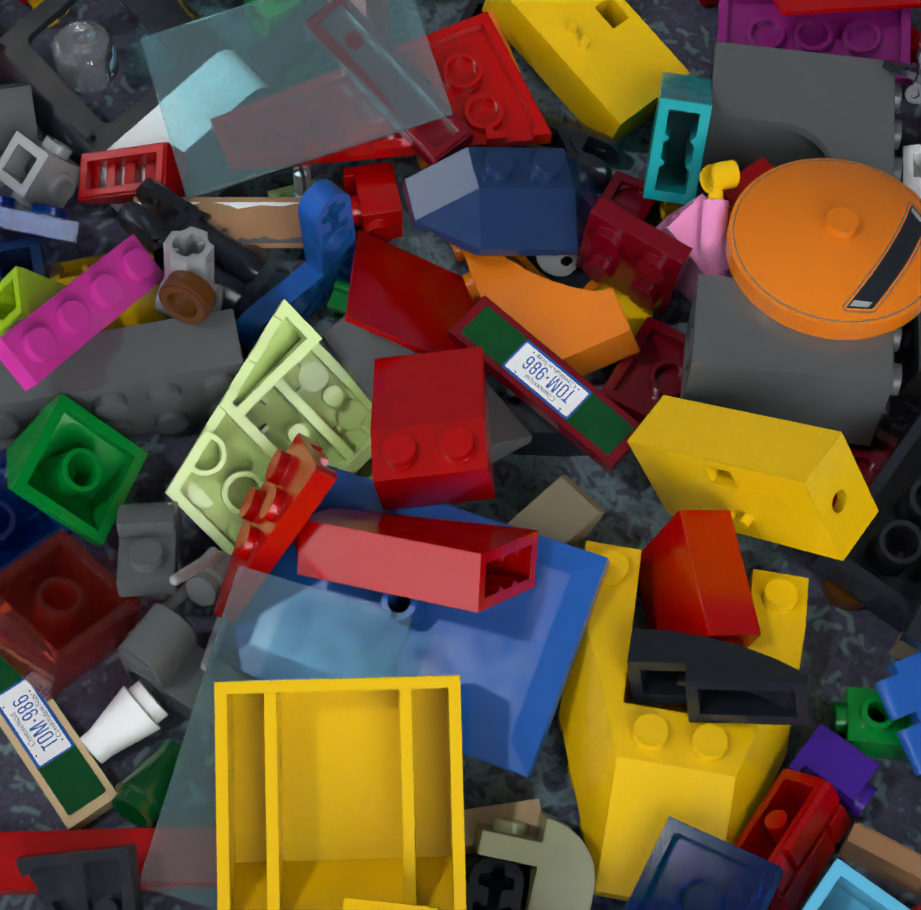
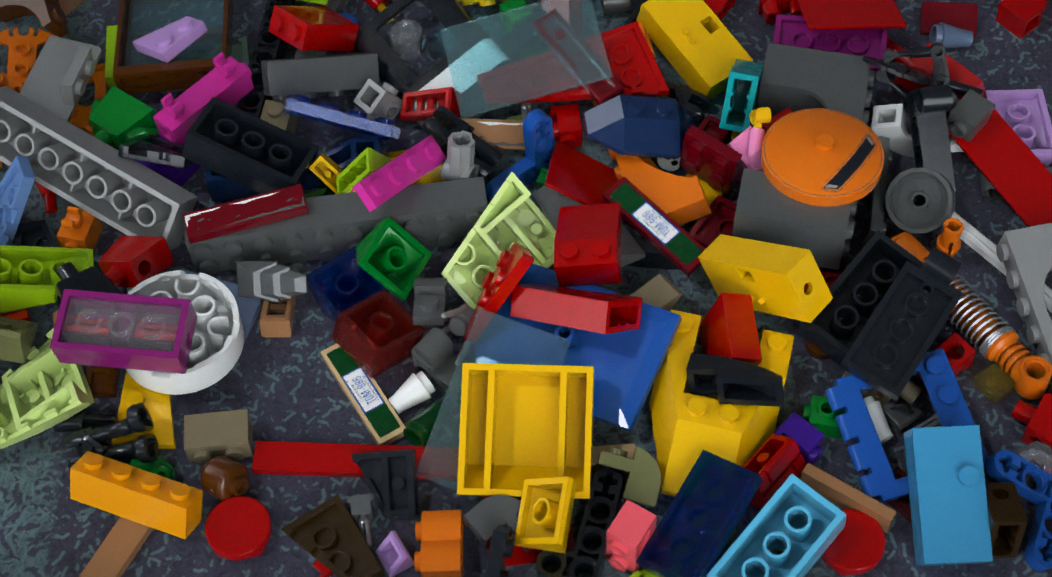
camera: 10 degrees right, 5 degrees down
(187, 297) = (459, 168): reddish brown tile -> none

